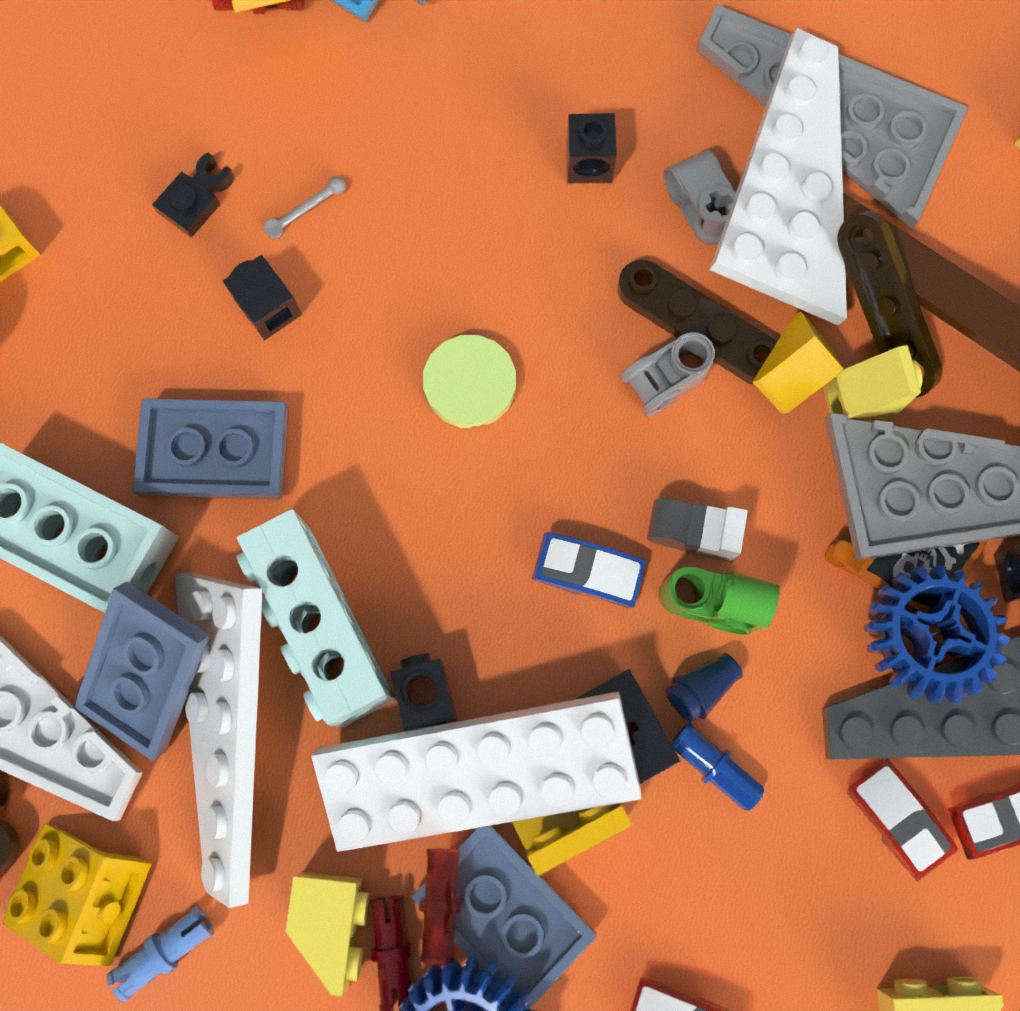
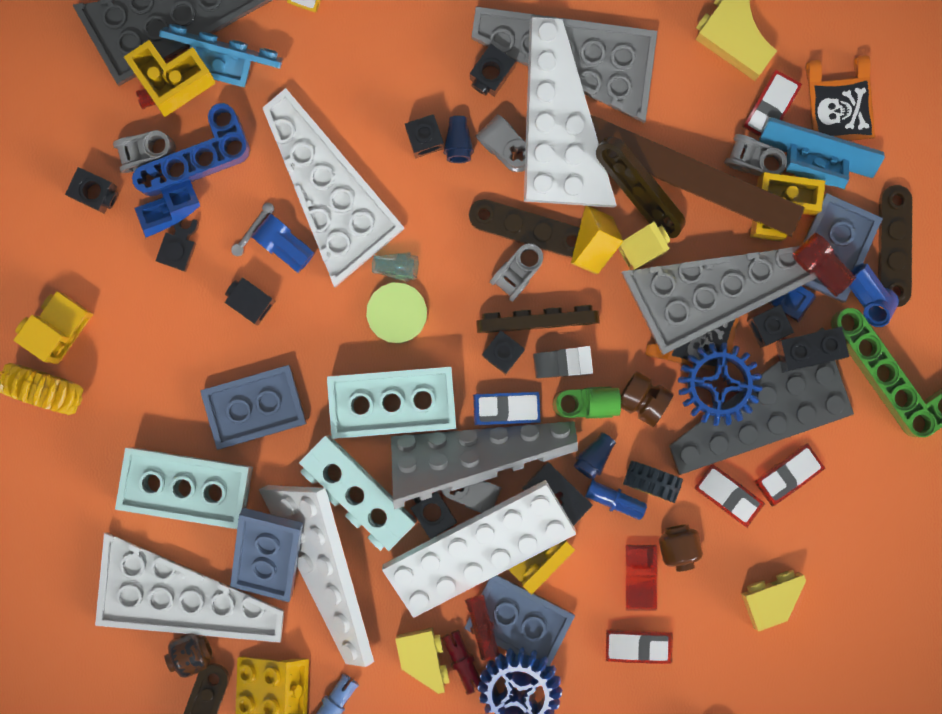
camera: 20 degrees left, 10 degrees up
(93, 71) = (83, 181): none -> black brick
(194, 57) = (138, 149): none -> light grey piece
(197, 90) = (190, 156): none -> blue beam
(212, 136) = (163, 213): none -> blue slope
(335, 226) = (277, 239): none -> blue piece
(406, 471) = (376, 387): none -> light aqua brick
(437, 205) = (338, 203): none -> white wing
(493, 314) = (397, 266): none -> clear light blue cone
(501, 683) = (476, 496): none -> light grey piece
(511, 622) = (471, 456): none -> light grey wing
(609, 482) = (503, 352): none -> black brick
(636, 174) = (458, 141): none -> dark blue cone
(692, 457) = (525, 321): none -> dark brown plate
(720, 77) = (497, 59): none -> black brick
(721, 908) = (640, 577): none -> clear red slope
(788, 754) = (653, 481): none -> black wheel
(802, 879) = (680, 547): none -> reddish brown head
(810, 622) = (645, 399): none -> reddish brown wheel

